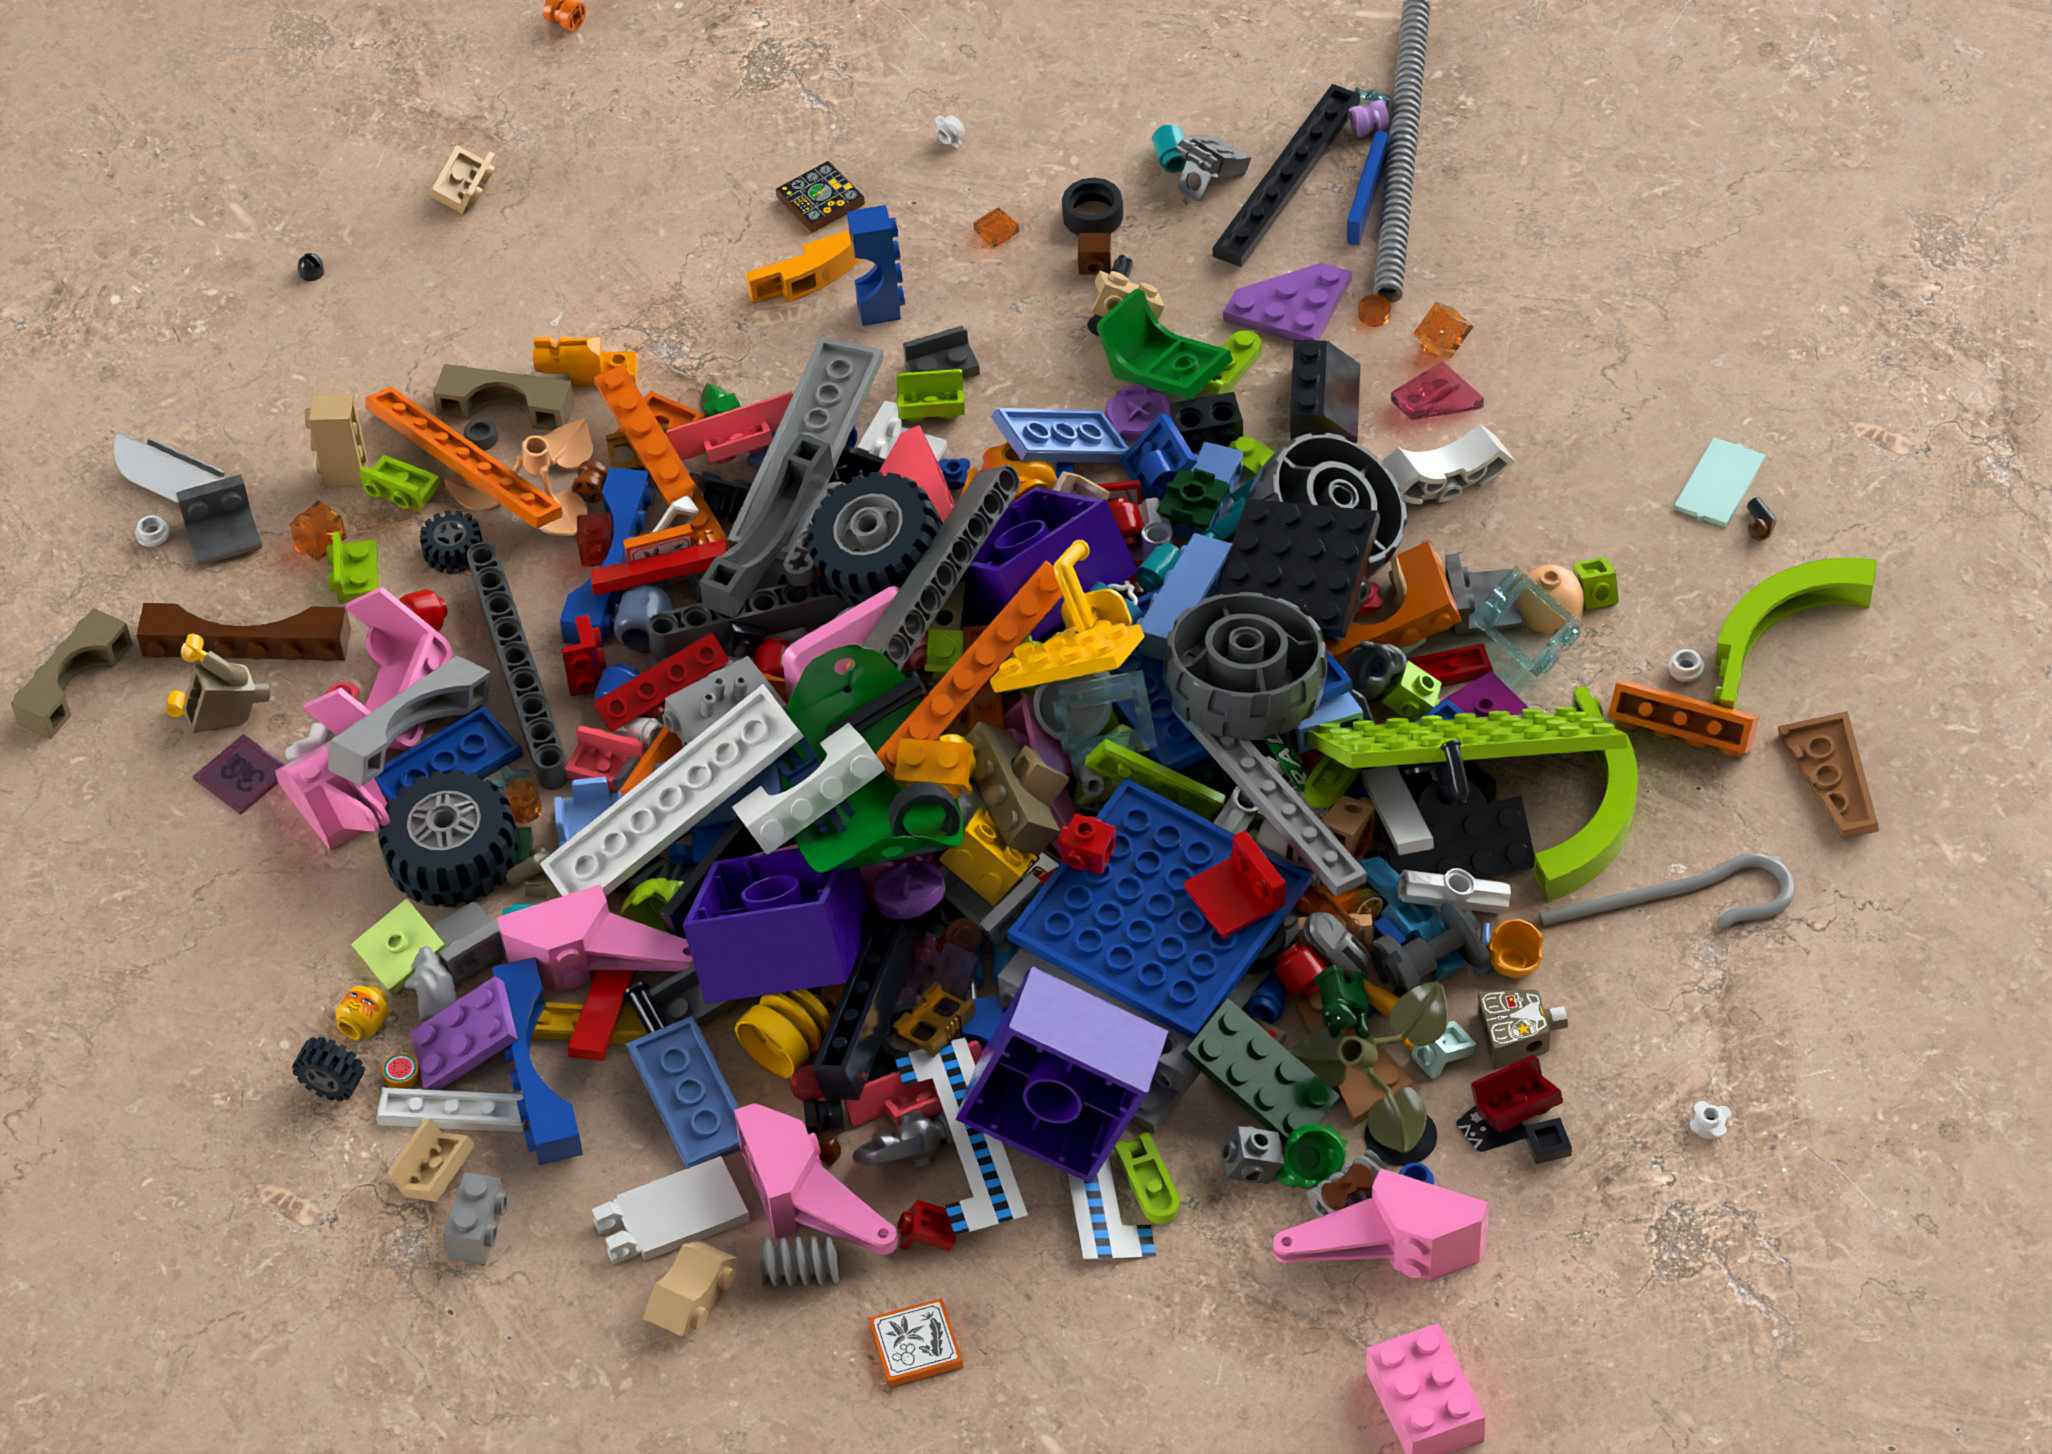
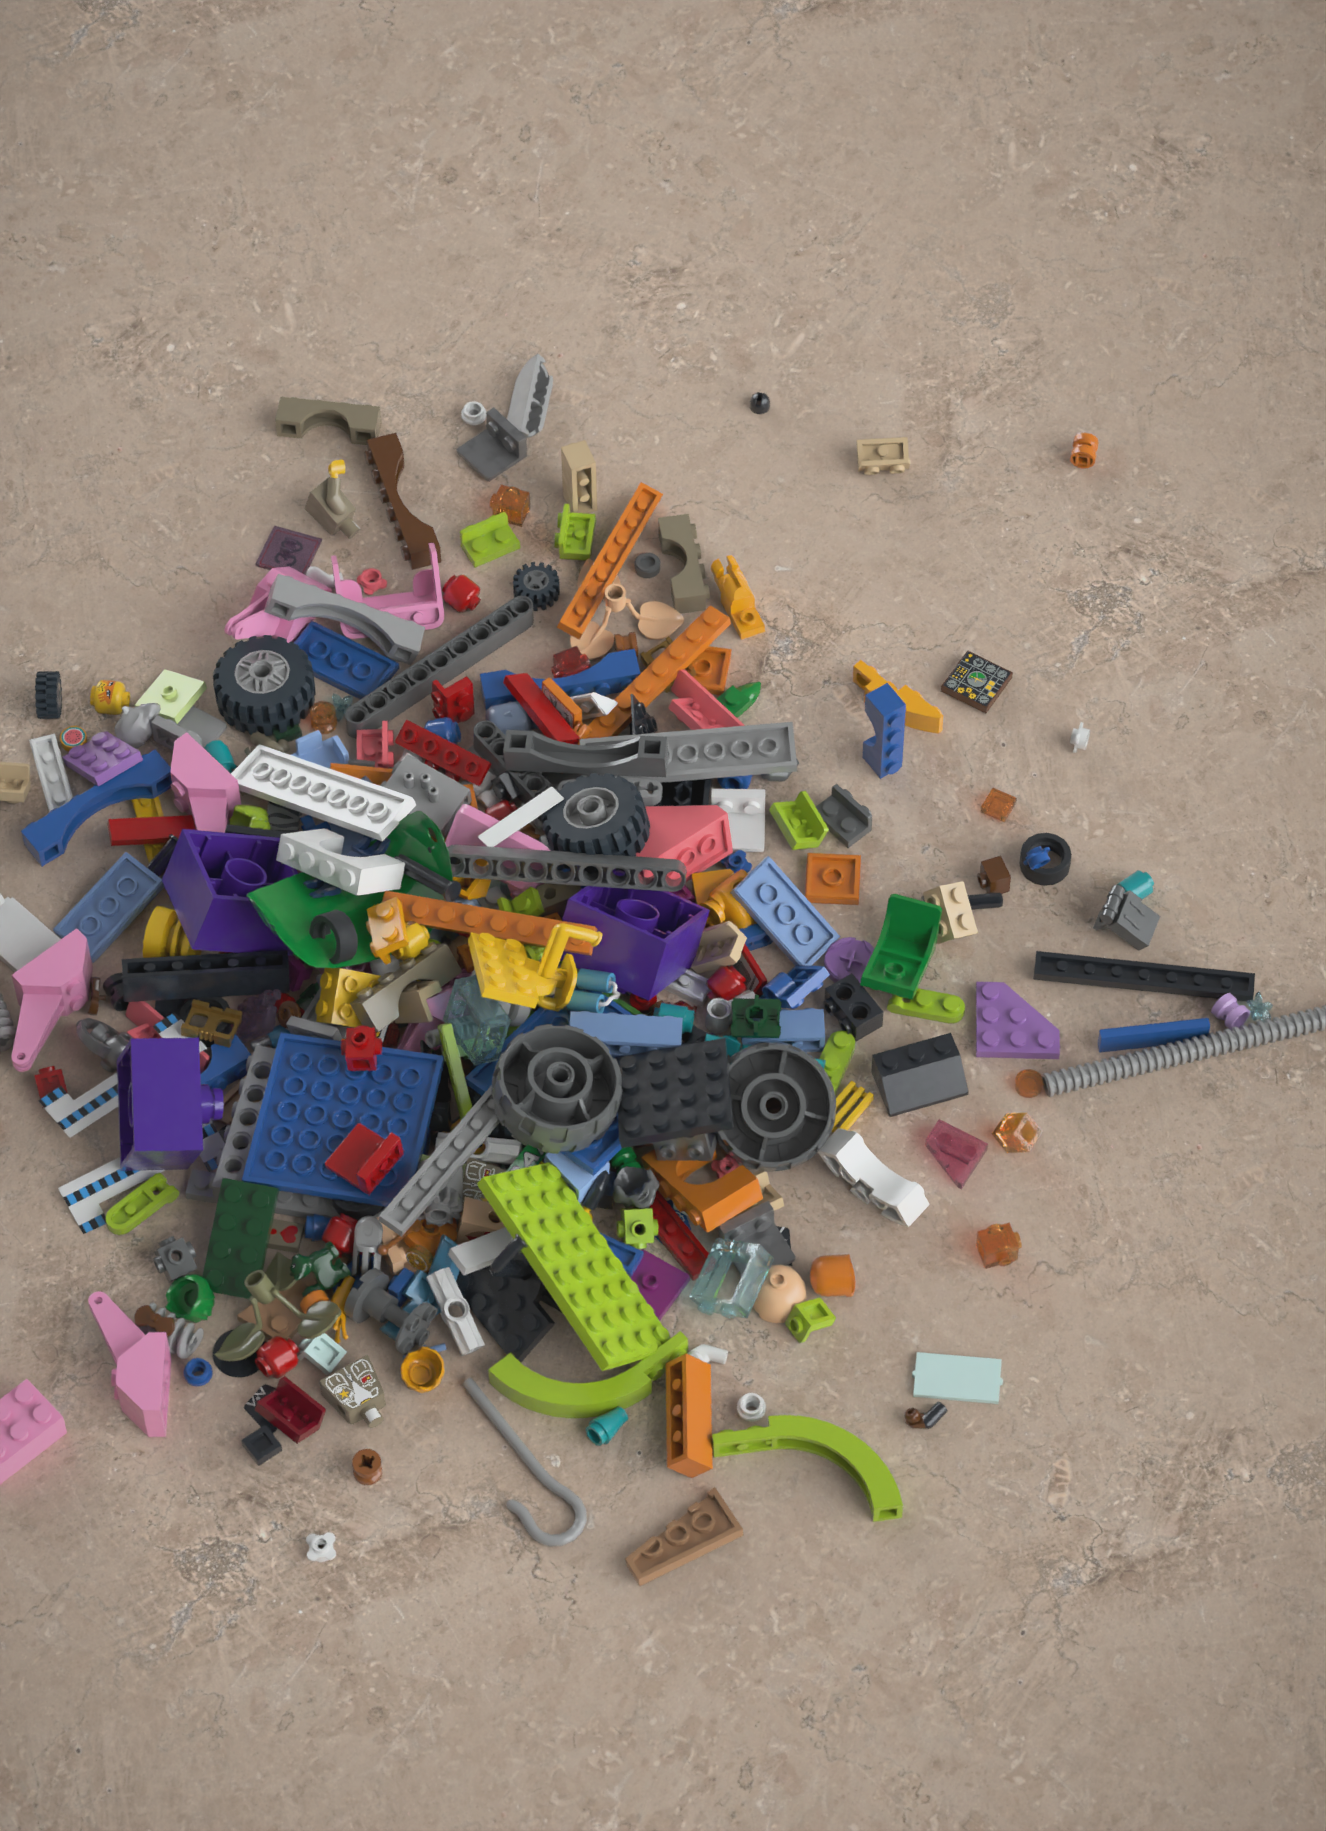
camera: 65 degrees right, 5 degrees up
(840, 597) = (520, 817): none -> white sticker
(908, 890) = (292, 968): medium lavender tile -> none
(1017, 388) = (833, 878): none -> orange tile
(1103, 199) = (1037, 857): none -> blue plate
(1380, 1023) = (311, 1298): none -> orange tile
(1438, 1087) = (277, 1357): none -> red head
(1555, 537) = (833, 1276): none -> orange helmet
(1574, 393) = (998, 1245): none -> clear orange brick
(1599, 685) = (709, 1353): none -> white arm
(1613, 1050) = (365, 1473): none -> dark orange wheel
(1661, 804) = (605, 1427): none -> teal cone

